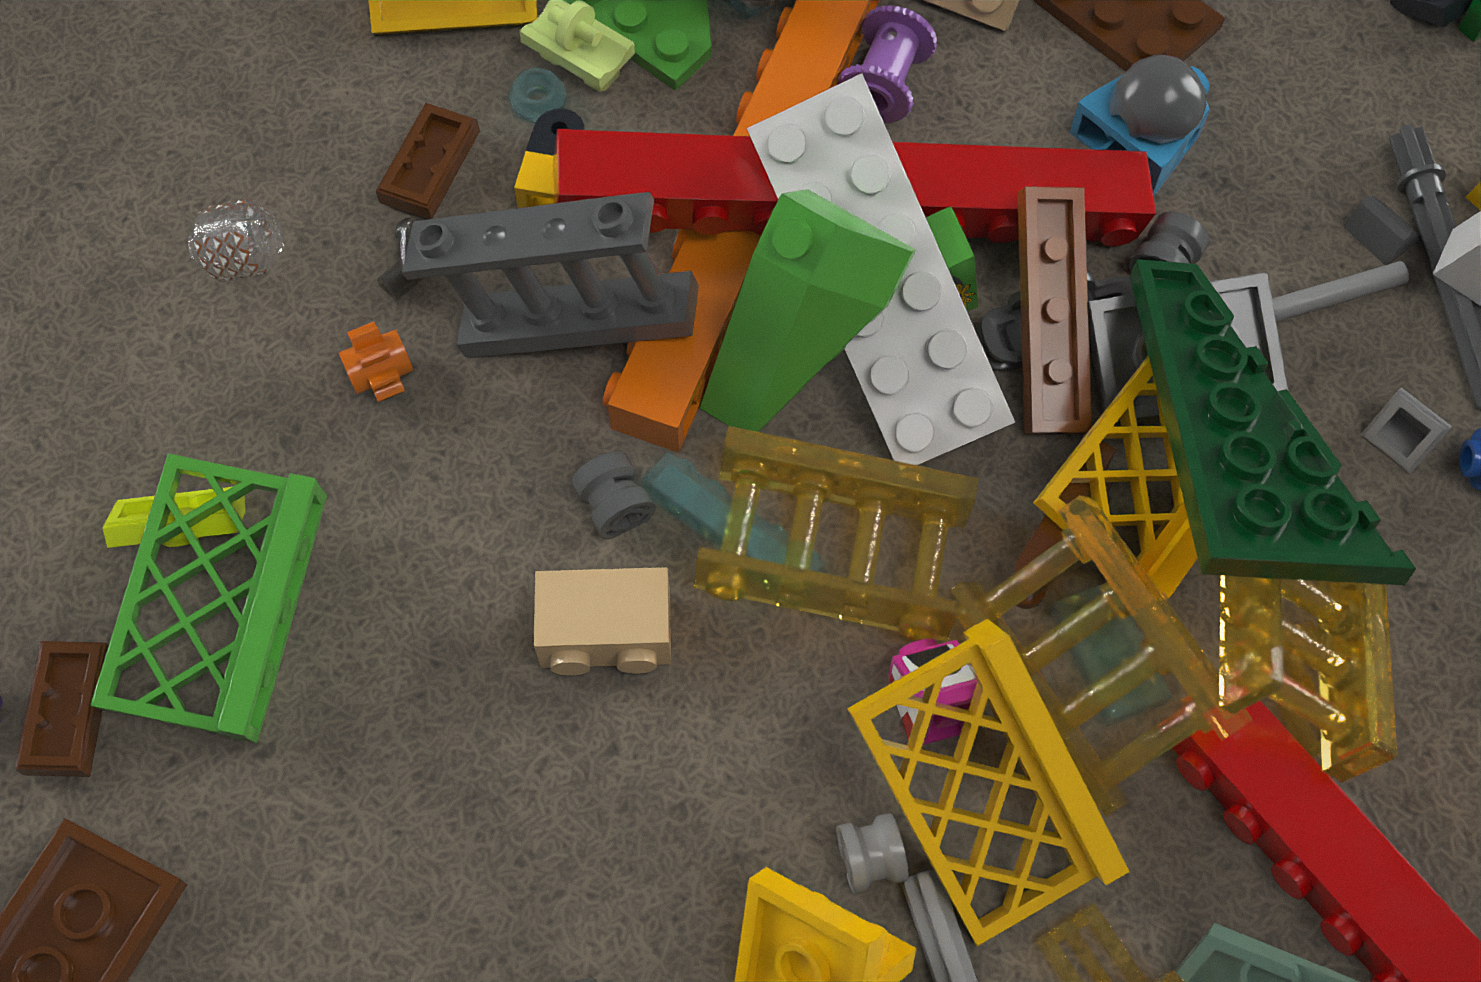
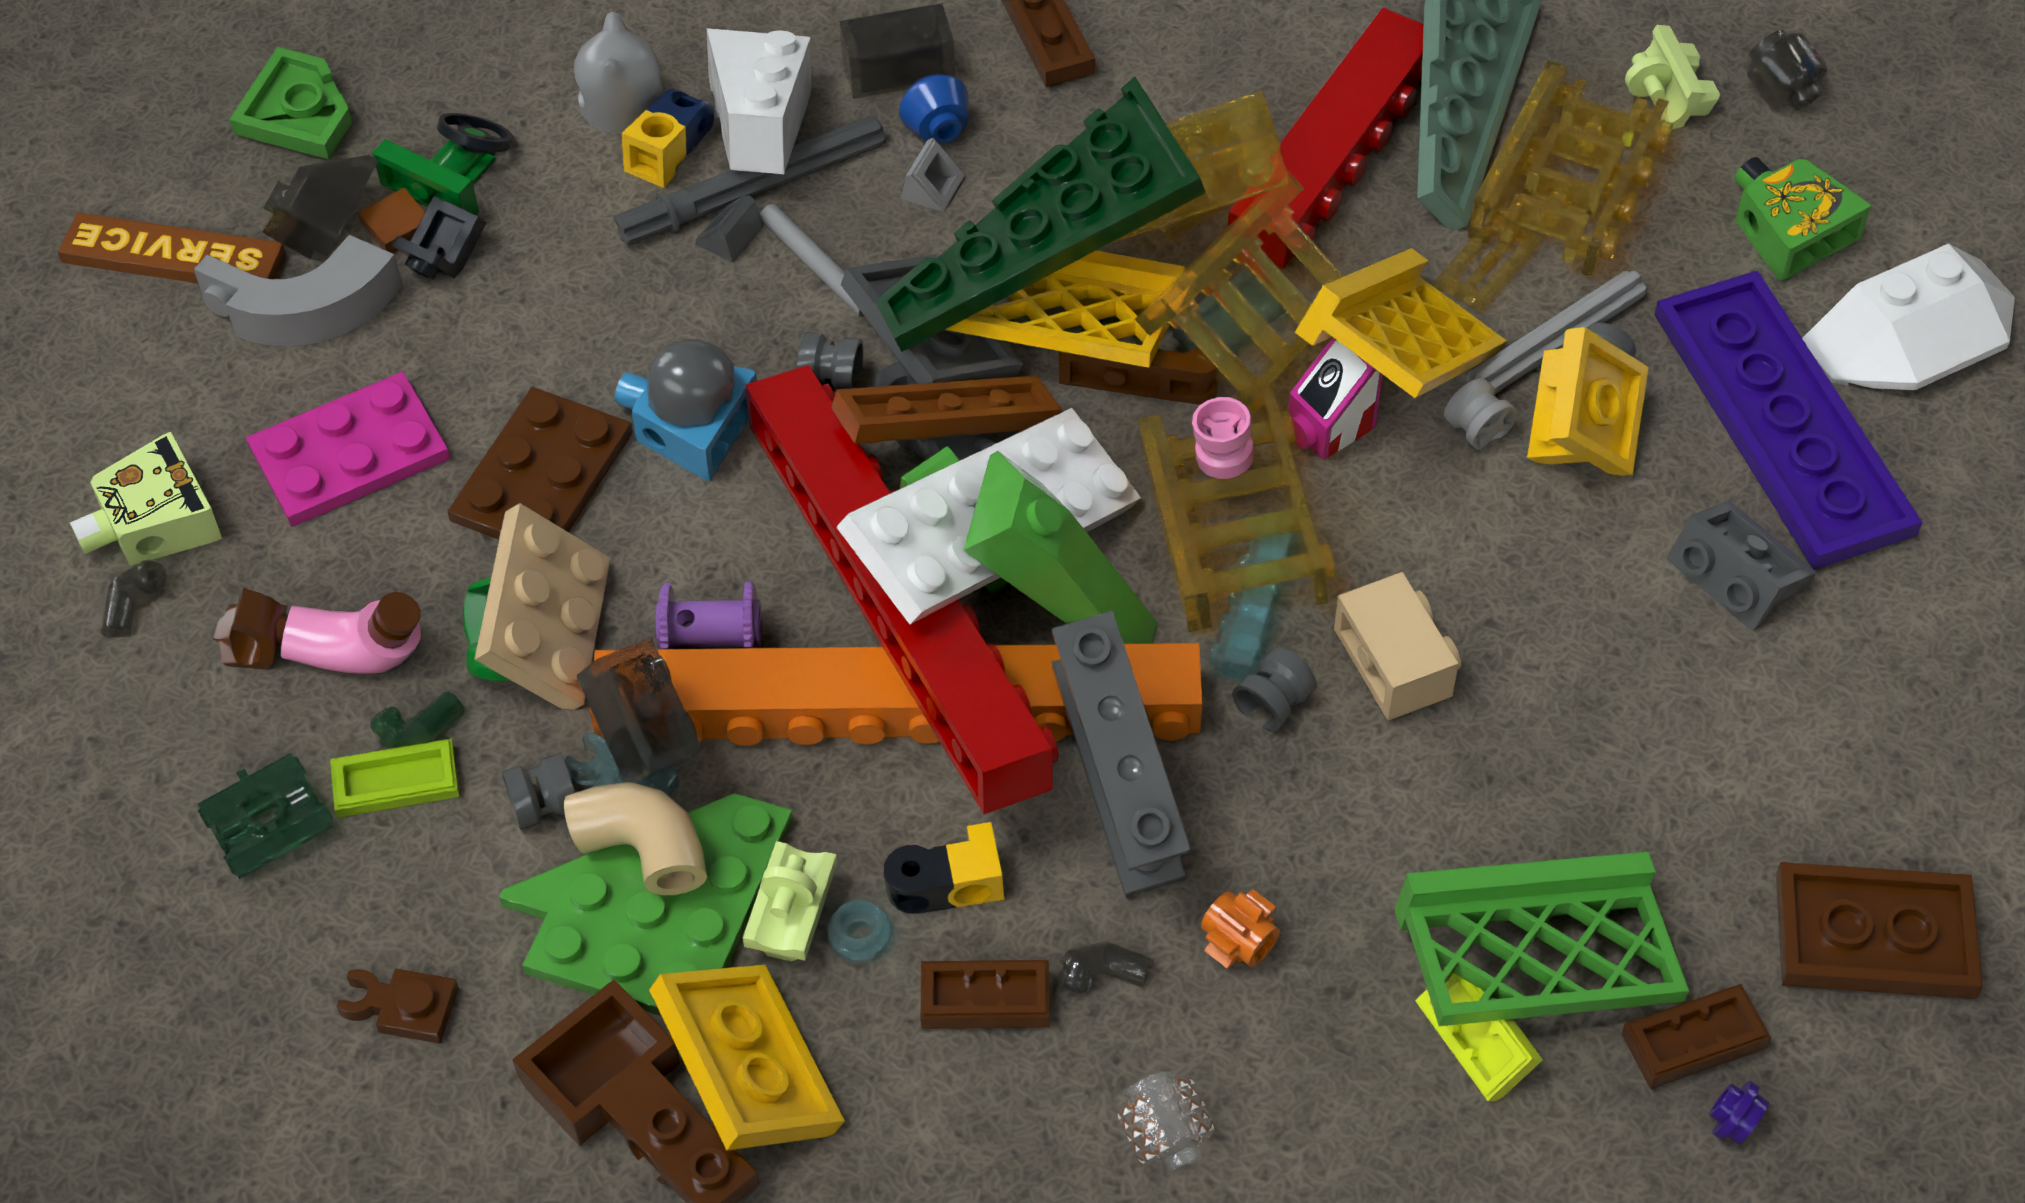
camera: 110 degrees left, 10 degrees down
(905, 530) = (1223, 437): none -> bright pink wheel

